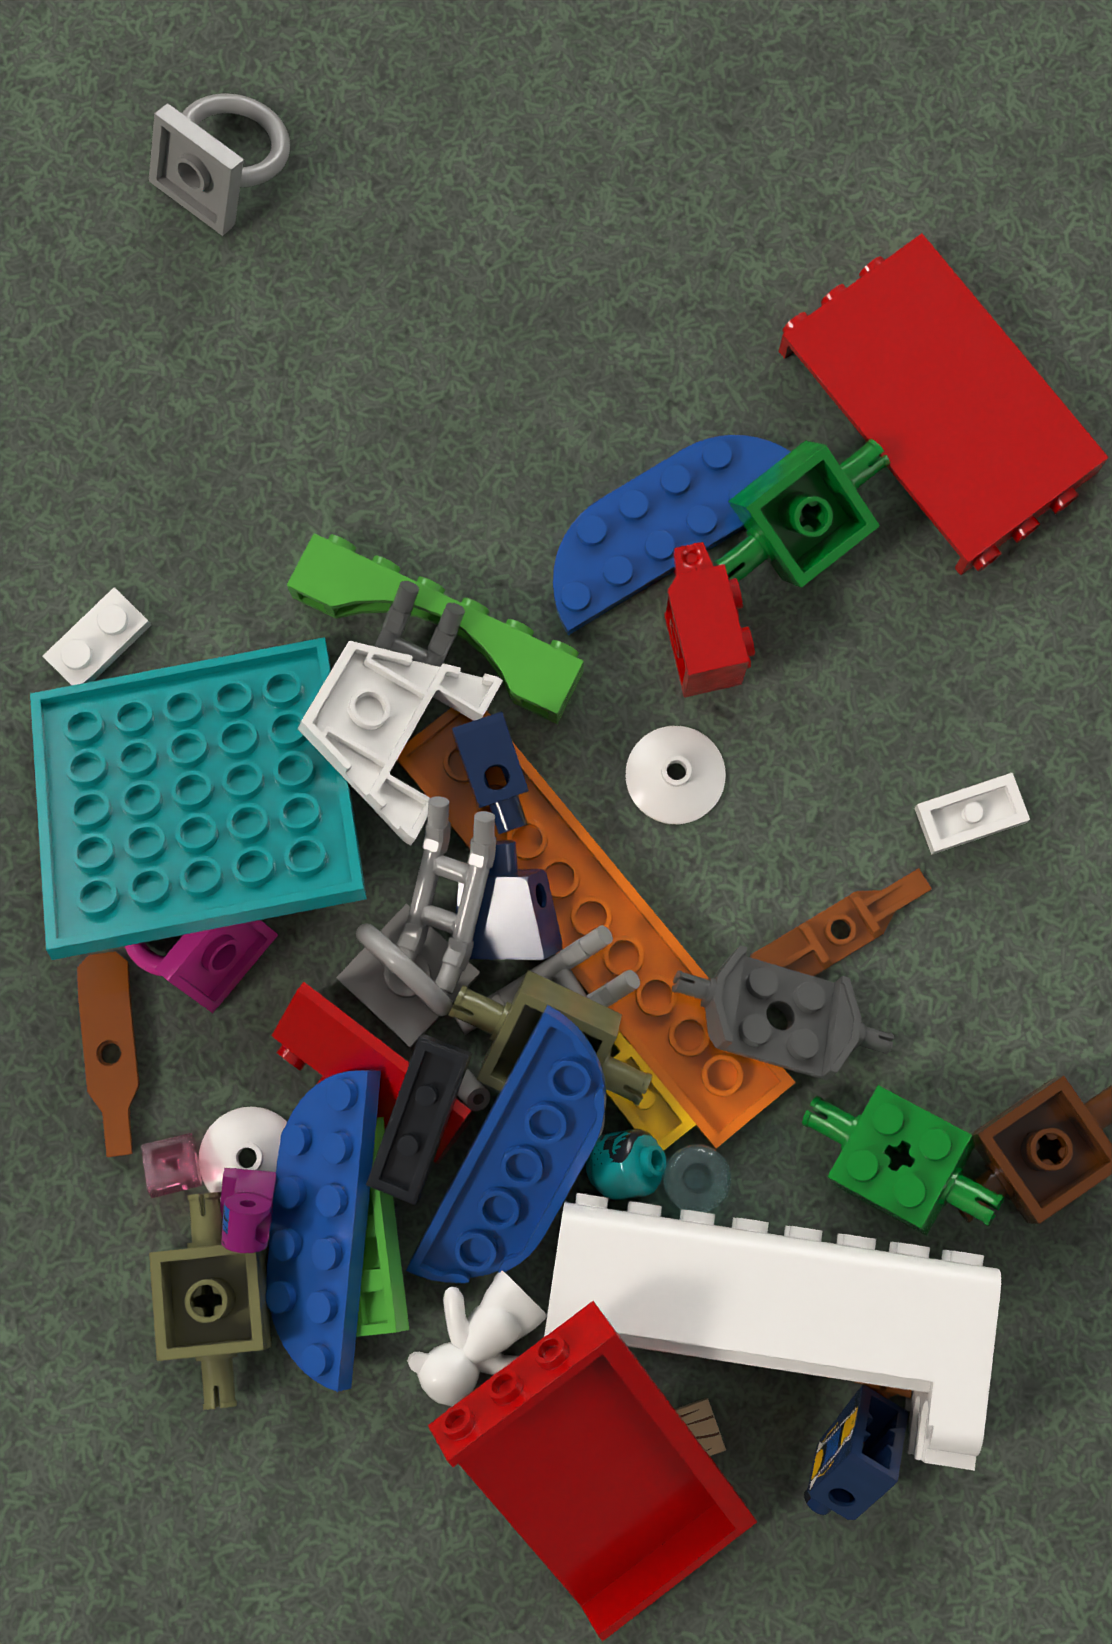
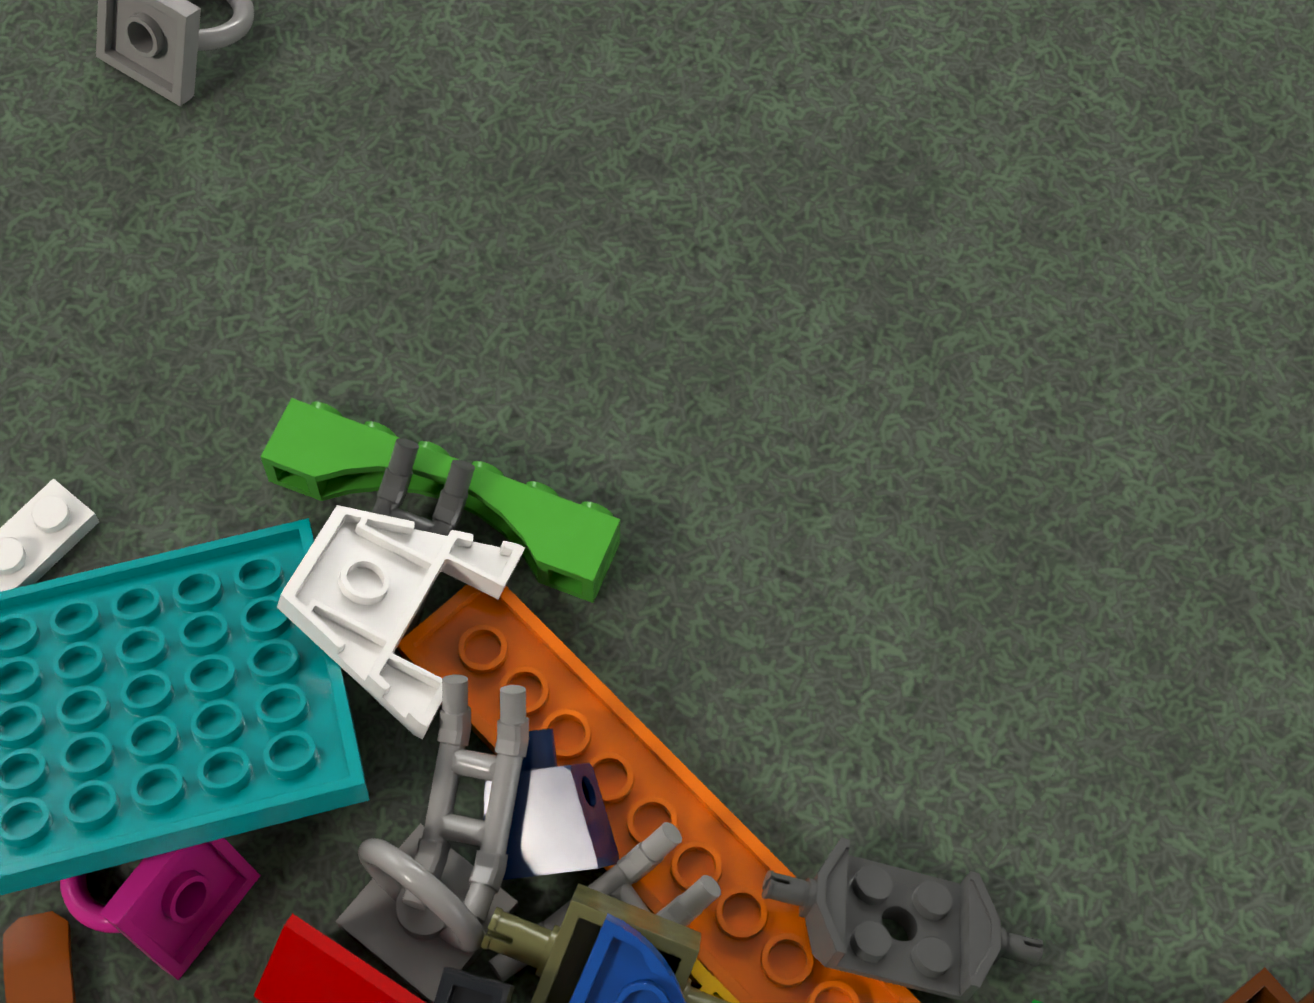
camera: 10 degrees left, 15 degrees down
(488, 745) = (512, 619): dark blue torso -> none
(632, 532) = (706, 370): blue plate -> none
(671, 799) = (732, 676): white dish -> none
(705, 624) = (762, 472): red hinge -> none
(812, 946) = (991, 797): dark orange piece -> none
(833, 515) = (868, 376): green brick -> none
(946, 401) = (1011, 225): red panel -> none
(972, 813) = (1100, 669): white plate -> none

